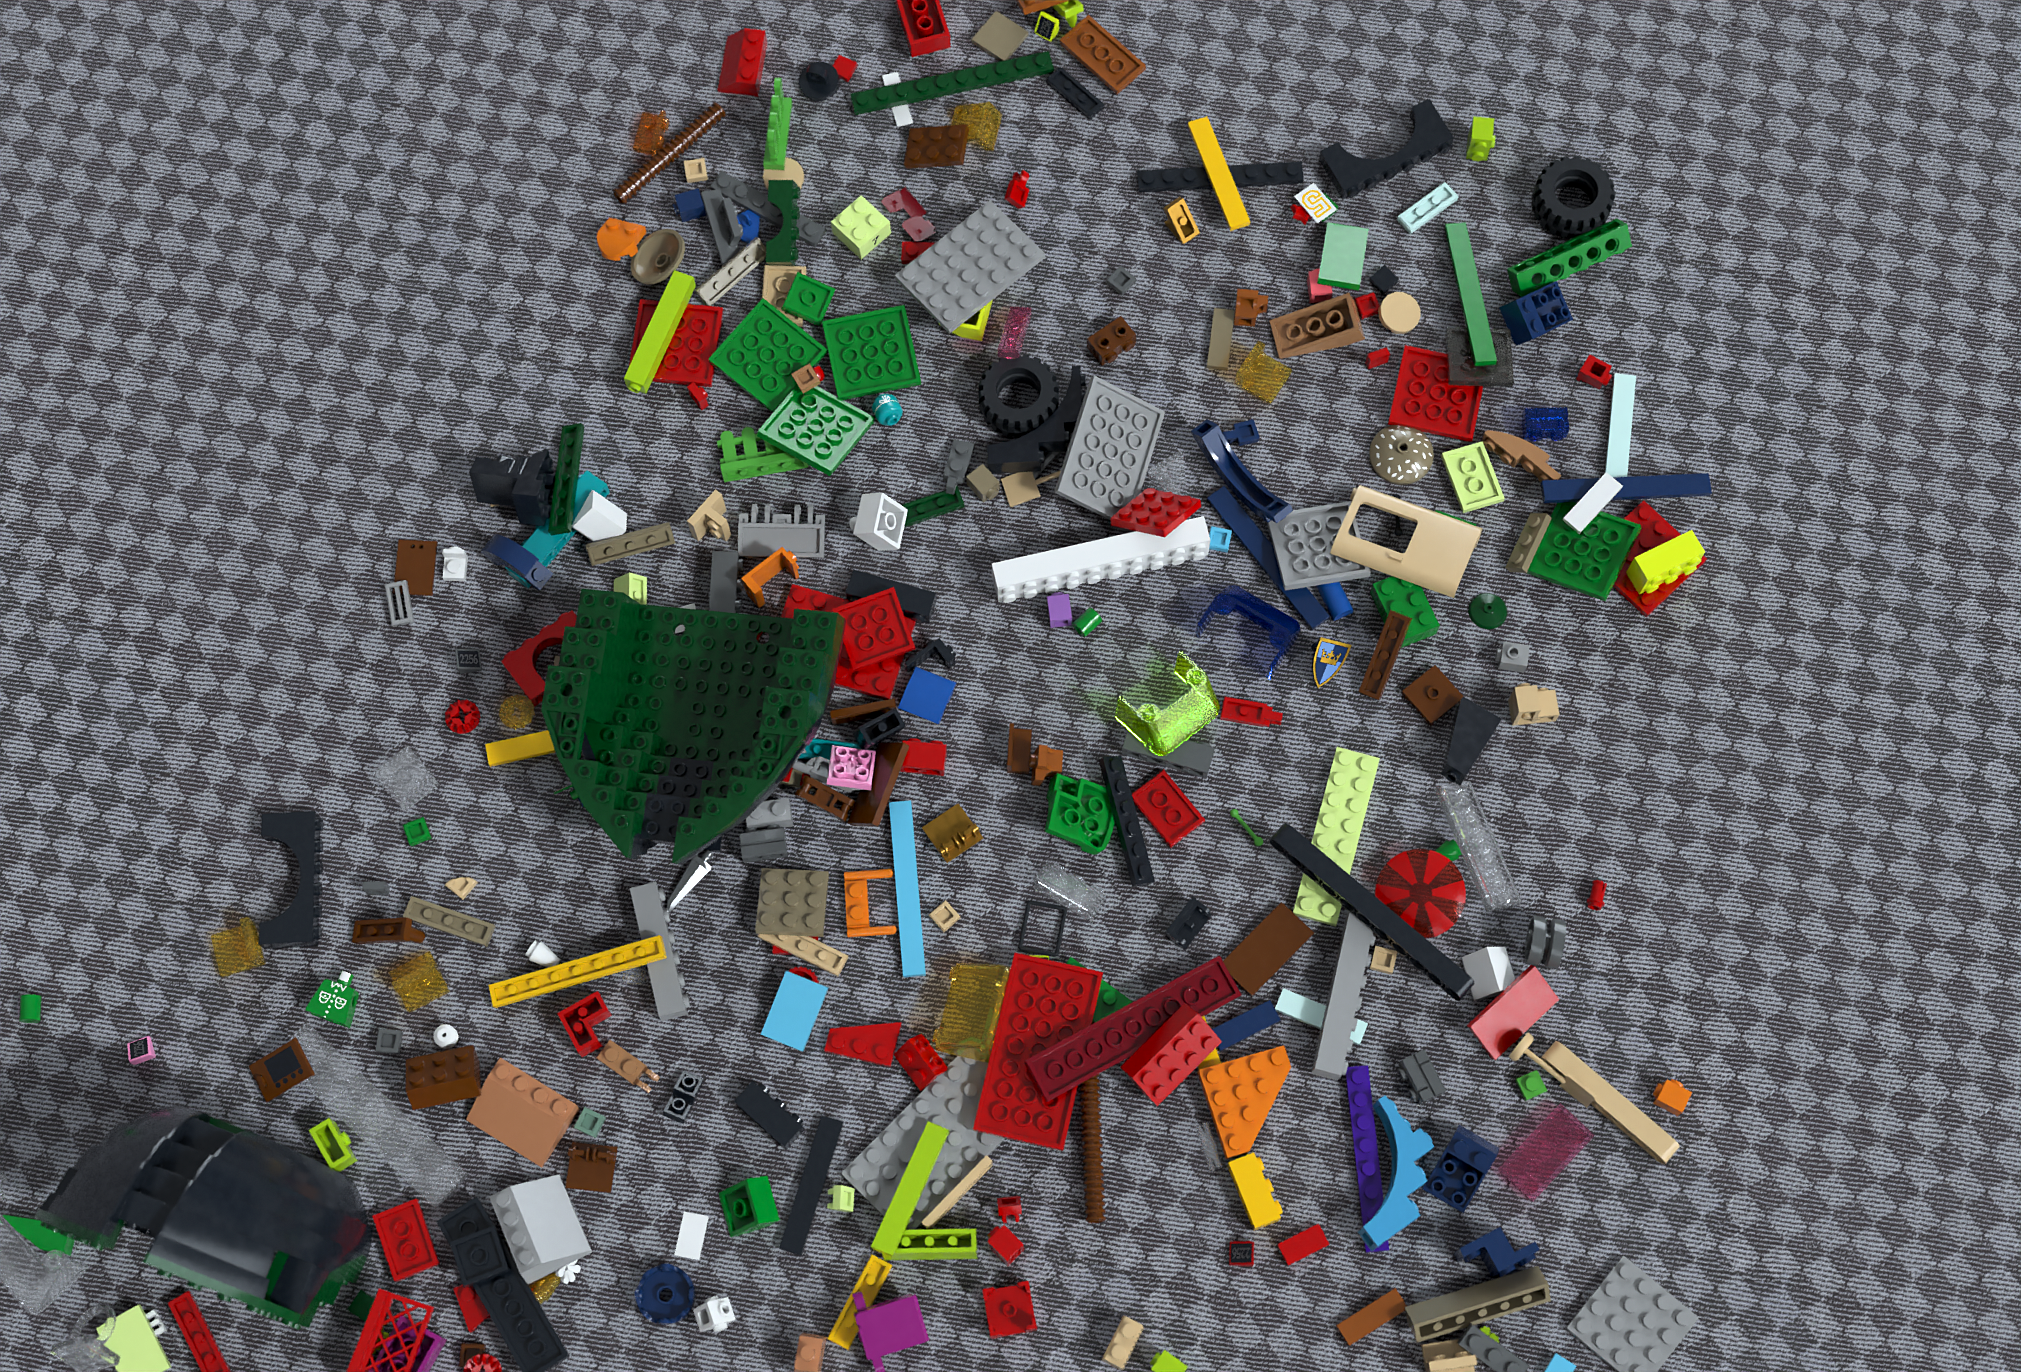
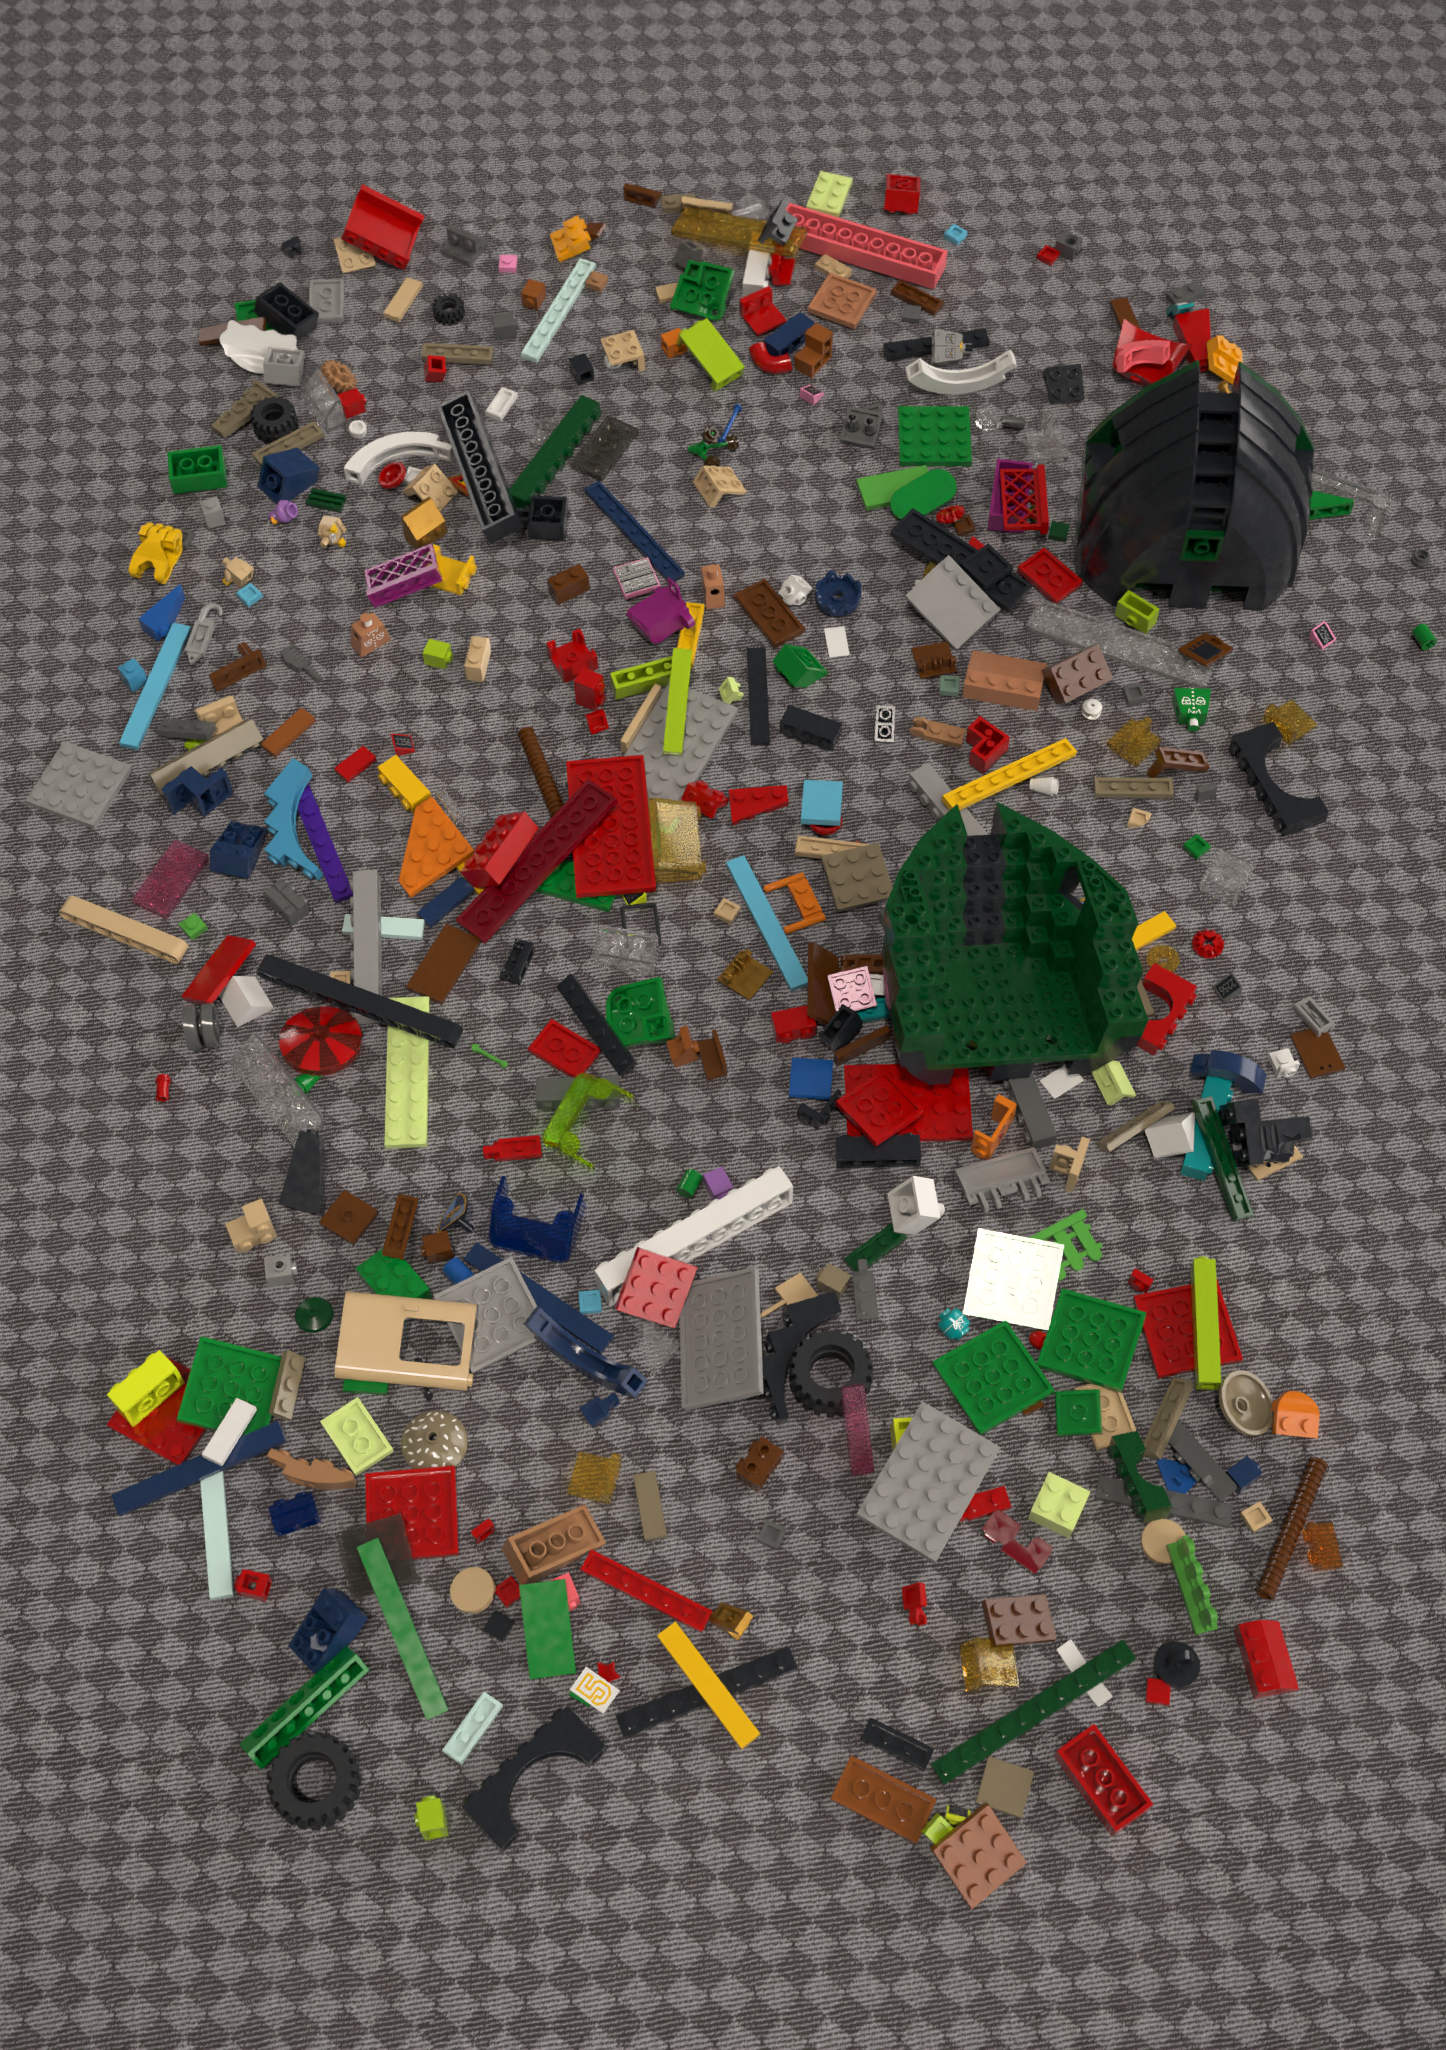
camera: 160 degrees right, 10 degrees down
(755, 1302) = (769, 613): none -> reddish brown tile
(806, 378) = (1043, 1322): medium nougat plate -> none
(1246, 267) = (646, 1591): none -> red plate
(1249, 306) = (631, 1544): dark orange brick -> none
(1354, 629) = (436, 1247): none -> reddish brown brick
(1569, 1083) = (205, 944): tan piece -> none
(1671, 1096) = (70, 947): orange brick -> none

